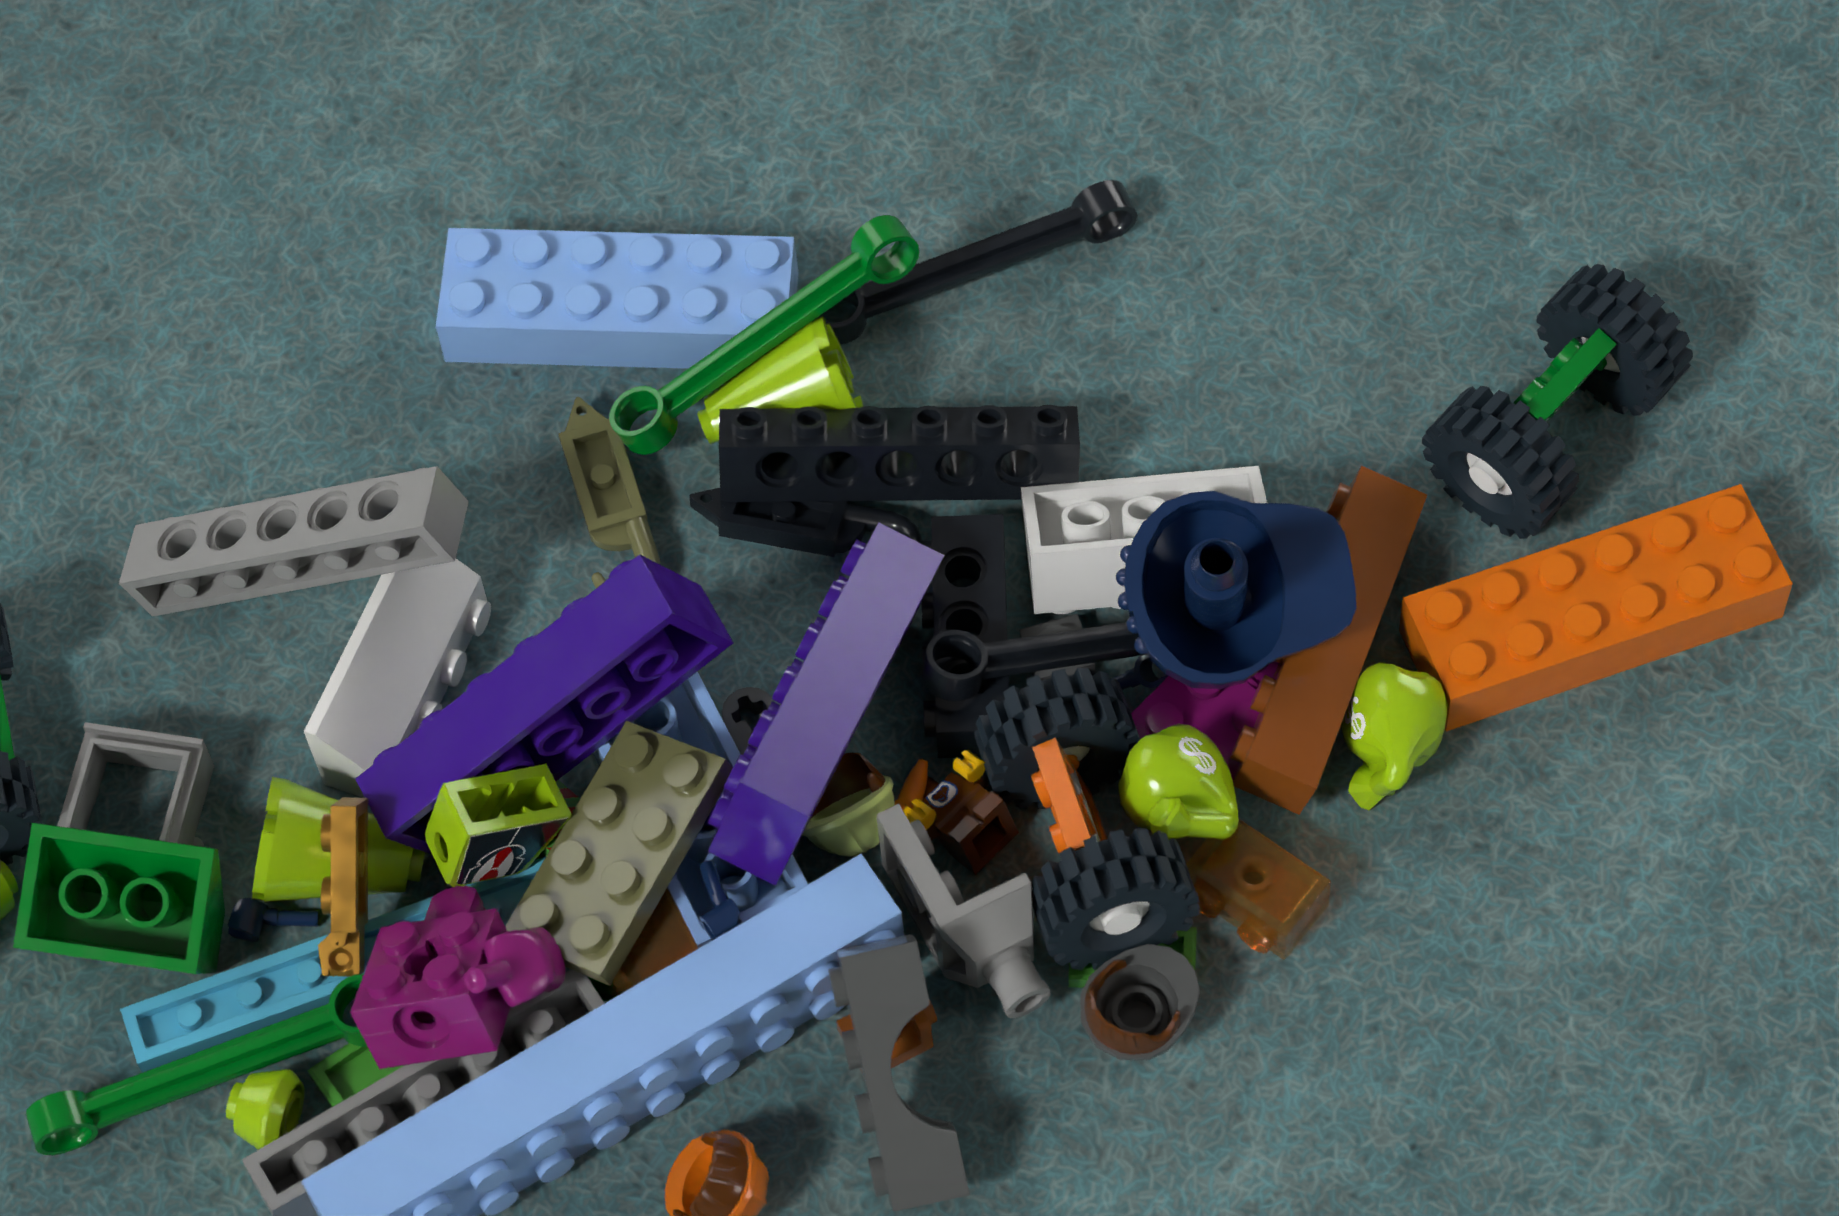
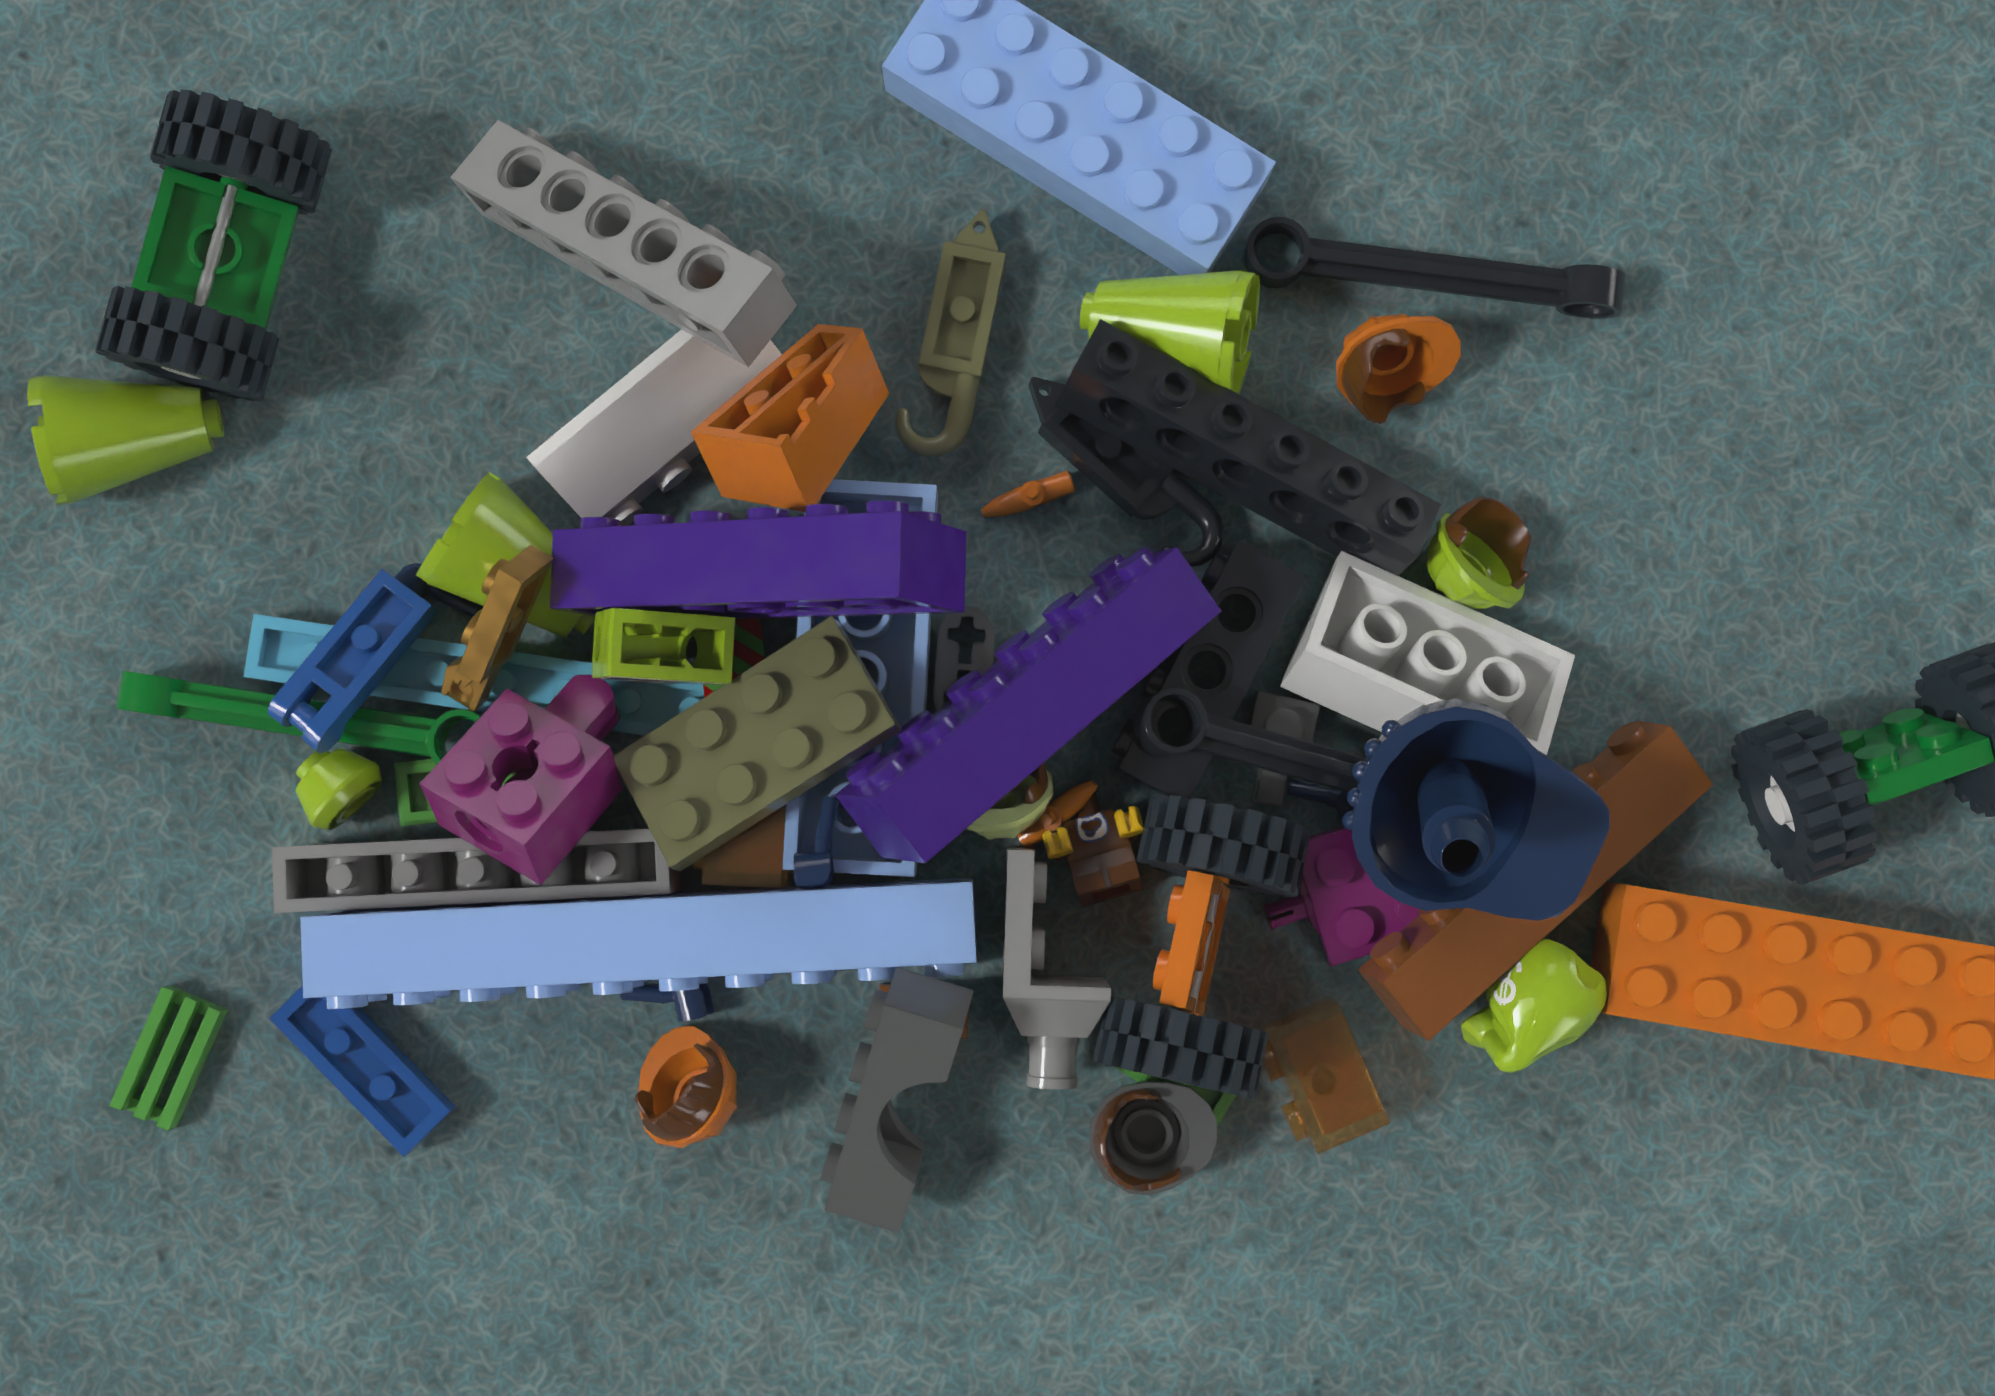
camera: 20 degrees right, 25 degrees up
(121, 900) = (285, 522): green slope -> none
(143, 749) = (390, 470): light grey piece -> none
(231, 985) = (352, 660): none -> blue plate
(509, 596) = (795, 420): none -> orange wedge
(519, 966) = (596, 822): magenta piece -> none
(672, 1121) = (688, 1003): none -> dark blue hand
(744, 584) = (1030, 495): none -> orange helmet
(765, 334) = (1340, 246): green piece -> none
(979, 332) = (1395, 362): none -> orange piece
(1133, 433) = (1480, 555): none -> piece
(1179, 785) = (1305, 969): lime piece -> none

